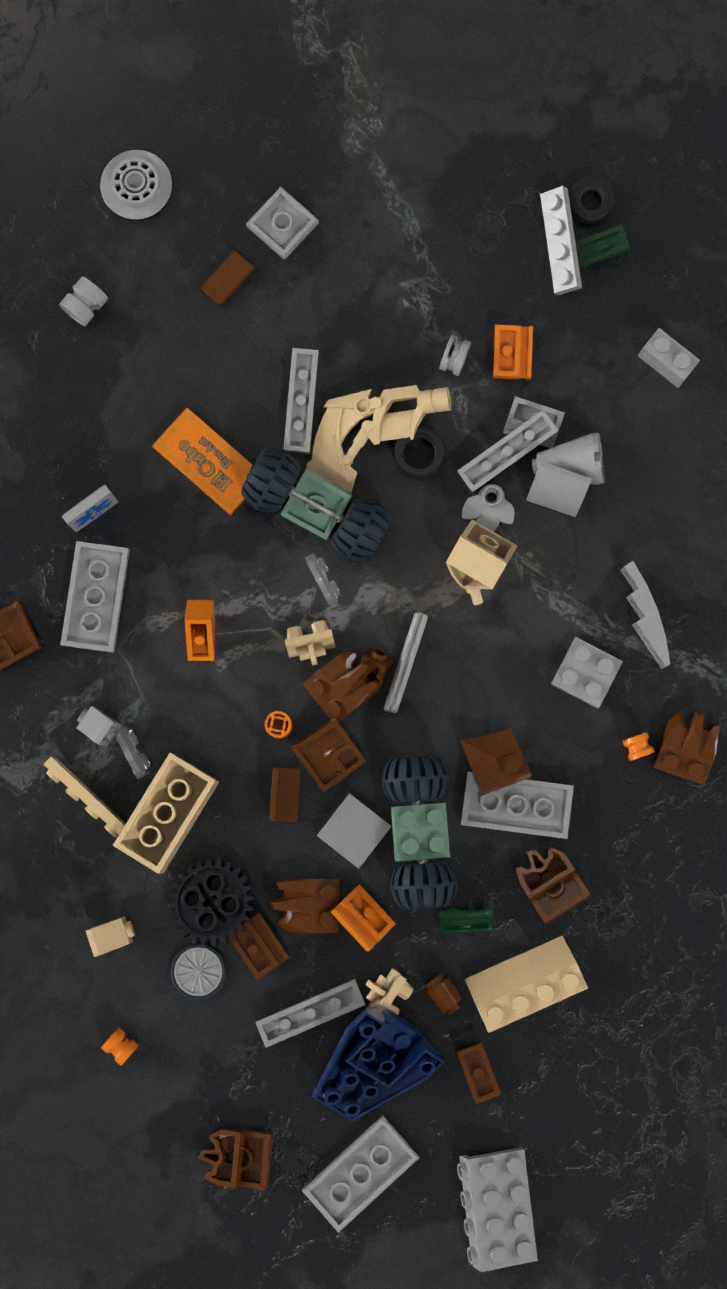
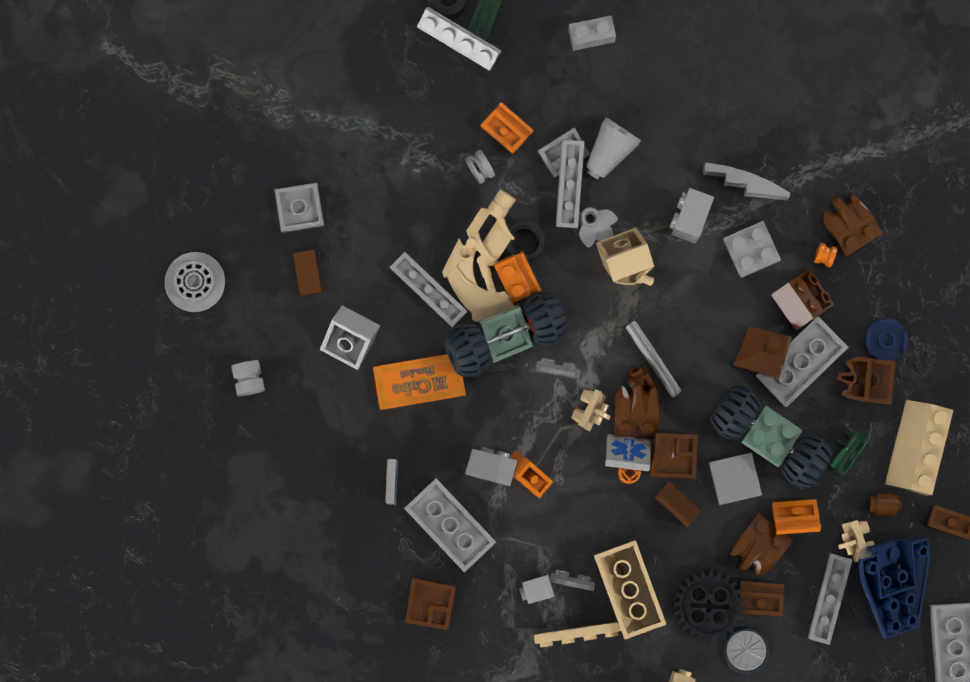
camera: 50 degrees left, 0 degrees up
(179, 589) = (491, 466): none -> light grey brick
(197, 363) = (349, 337): none -> light grey slope
(295, 708) = (628, 452): none -> light grey tile
(379, 472) = (517, 277): none -> orange plate
(558, 489) = (621, 172): light grey slope -> none
(571, 588) = (692, 215): none -> light grey brick
(577, 758) = (802, 299): none -> reddish brown slope
(597, 873) = (886, 339): none -> dark blue tile

